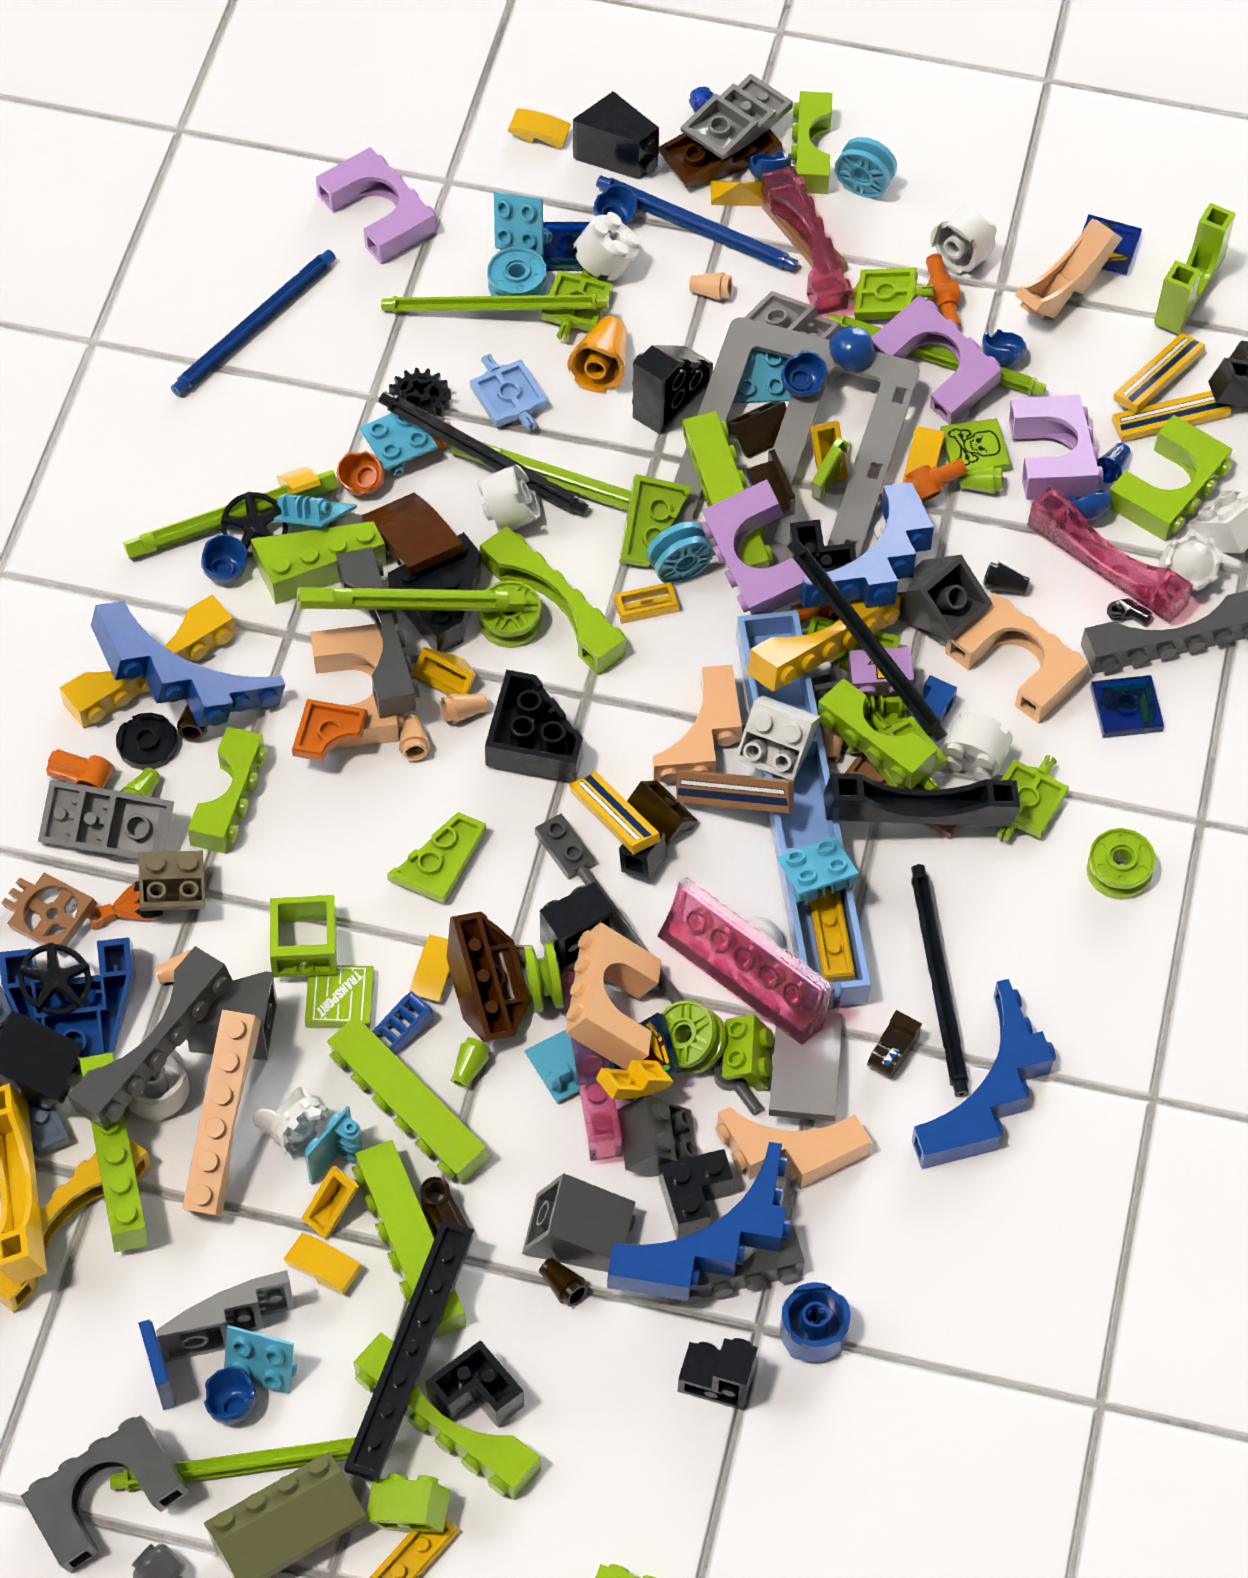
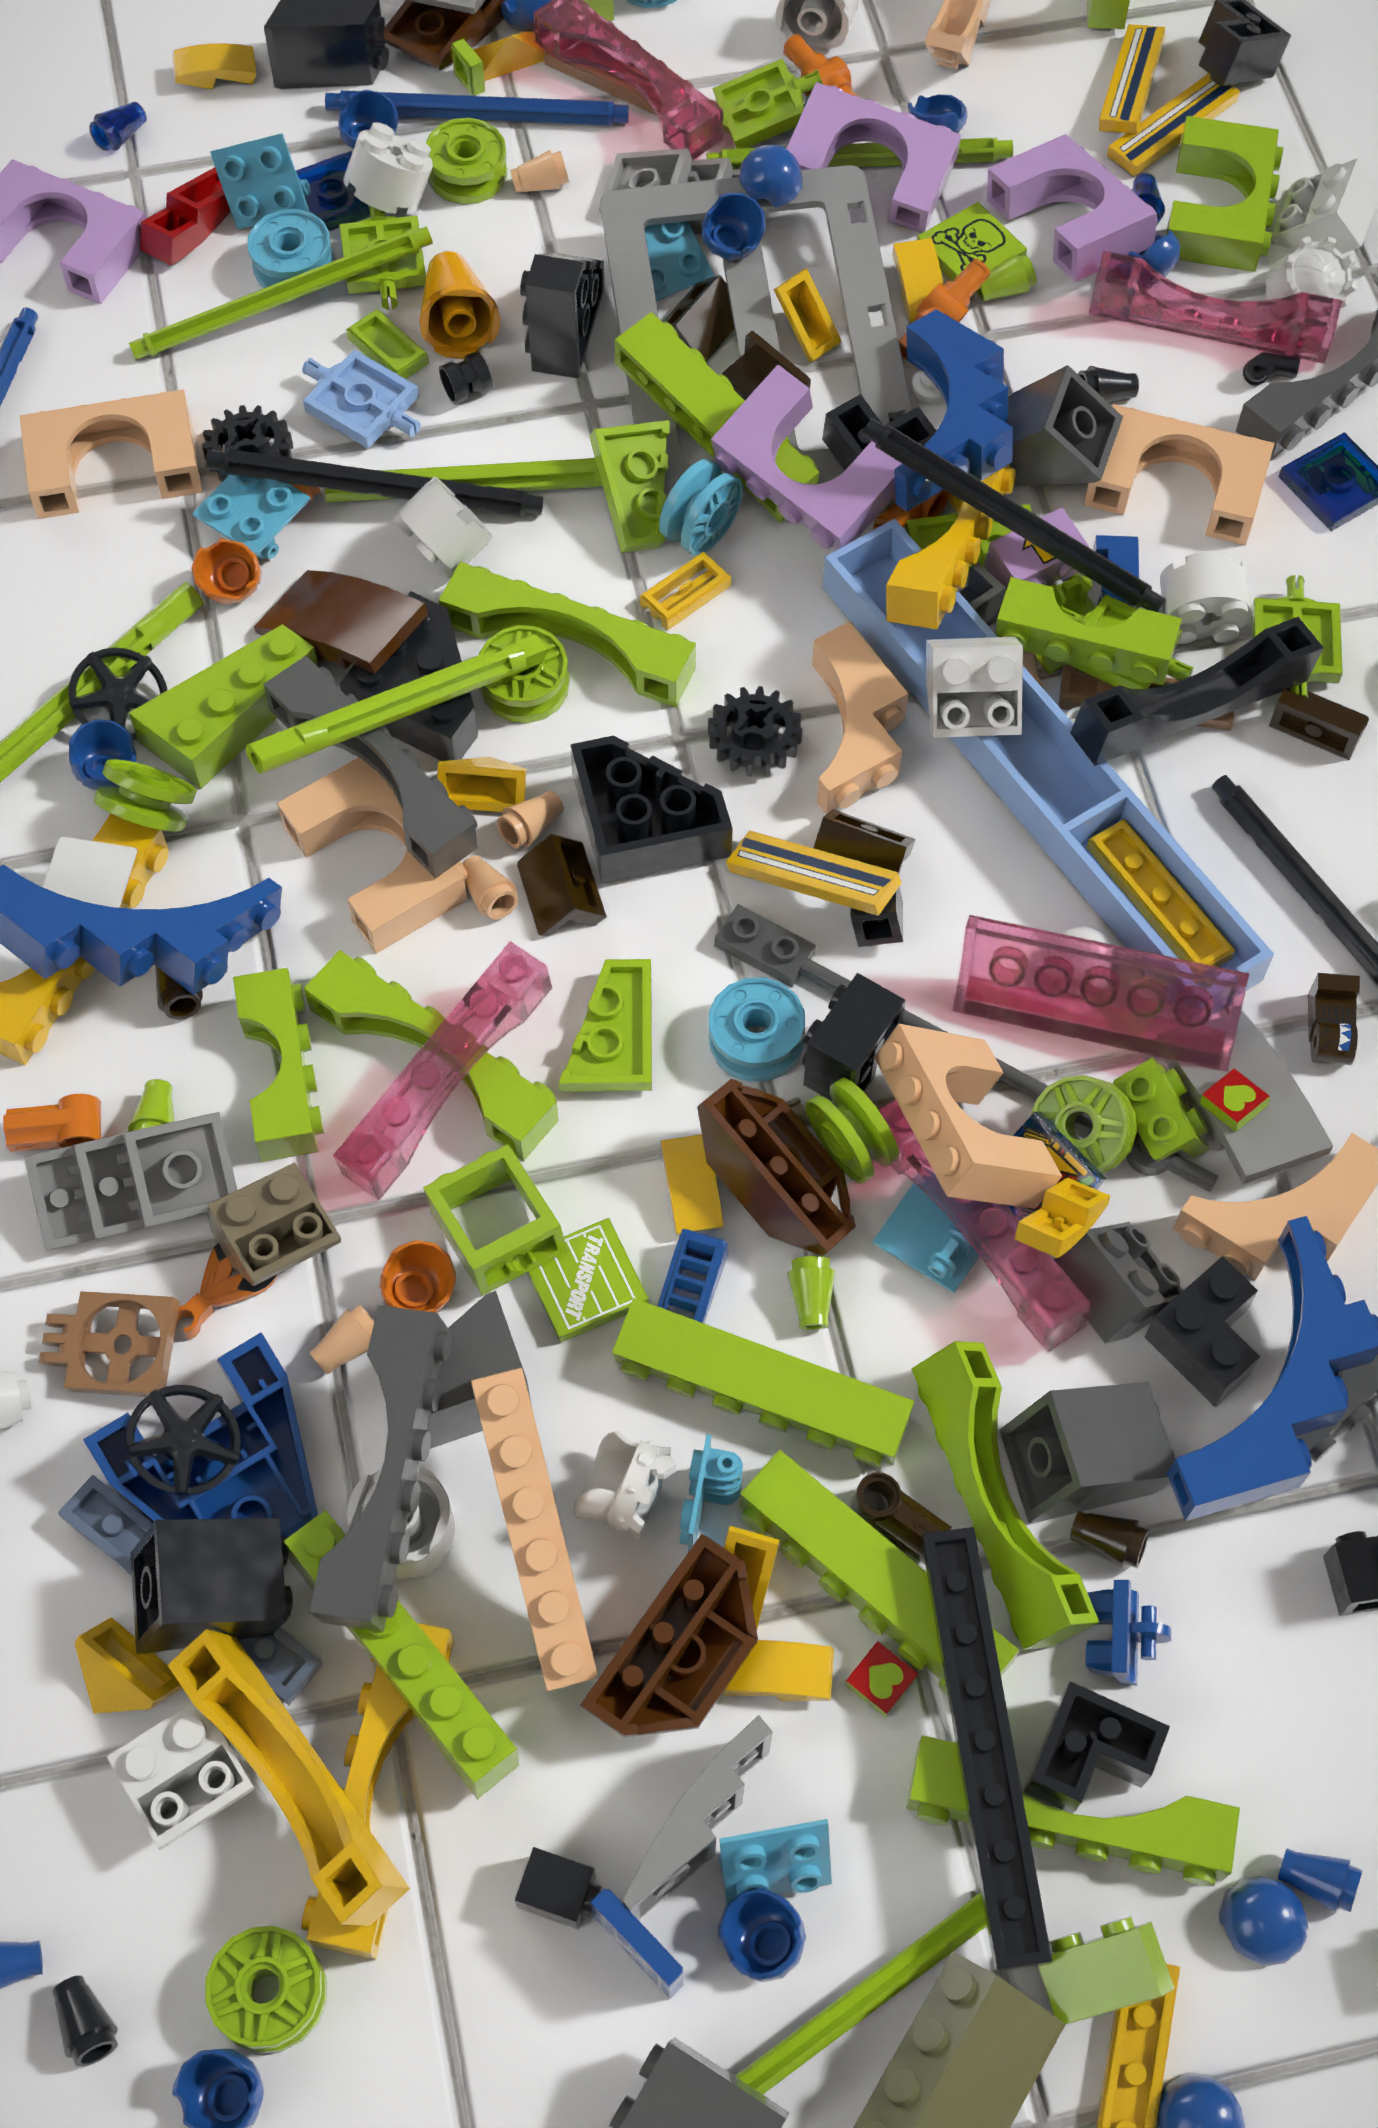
camera: 25 degrees left, 5 degrees up
(123, 1317) = (557, 1888): none -> black brick
(147, 741) = (125, 1045): black tile -> none
(176, 627) = (90, 871): none -> white sticker
(234, 594) = (145, 795): none -> lime wheel
(240, 950) = (418, 1277): none -> orange hair
(270, 1220) = (680, 1648): none -> reddish brown wedge
(273, 856) = (396, 1123): none -> clear pink arch
(298, 480) = (149, 612): yellow slope -> none
(305, 345) = (62, 437): none -> light nougat arch
(310, 511) = (188, 645): medium azure hinge -> none
(325, 726) = (371, 920): orange tile -> none
(349, 873) = (360, 1002): none -> lime arch
(381, 1297) = (881, 1679): none -> red tile
(453, 146) = (117, 125): none -> clear blue cone
(459, 755) = (560, 885): none -> dark brown panel
(466, 228) = (187, 220): none -> red slope
(499, 1288) = (1039, 1591): none -> lime arch
(520, 878) = (750, 1004): none -> medium azure wheel
(523, 1529) = (1264, 1920): none -> blue hair
(539, 1337) = (1120, 1655): none -> blue hips
(547, 364) = (387, 344): none -> lime tile
(571, 1523) = (1322, 1878): none -> blue cone
(582, 406) = (465, 377): none -> black wheel
(634, 710) = (755, 731): none -> black gear
(666, 258) = (467, 160): none -> lime wheel
(704, 193) = (468, 67): none -> lime tile
(735, 791) = (955, 778): medium nougat tile -> none
(790, 1061) = (1234, 1100): none -> tile
(818, 867) = (1125, 832): medium azure hinge -> none
(829, 469) = (826, 333): lime tile -> none
(1010, 857) = (1319, 722): none -> dark brown panel

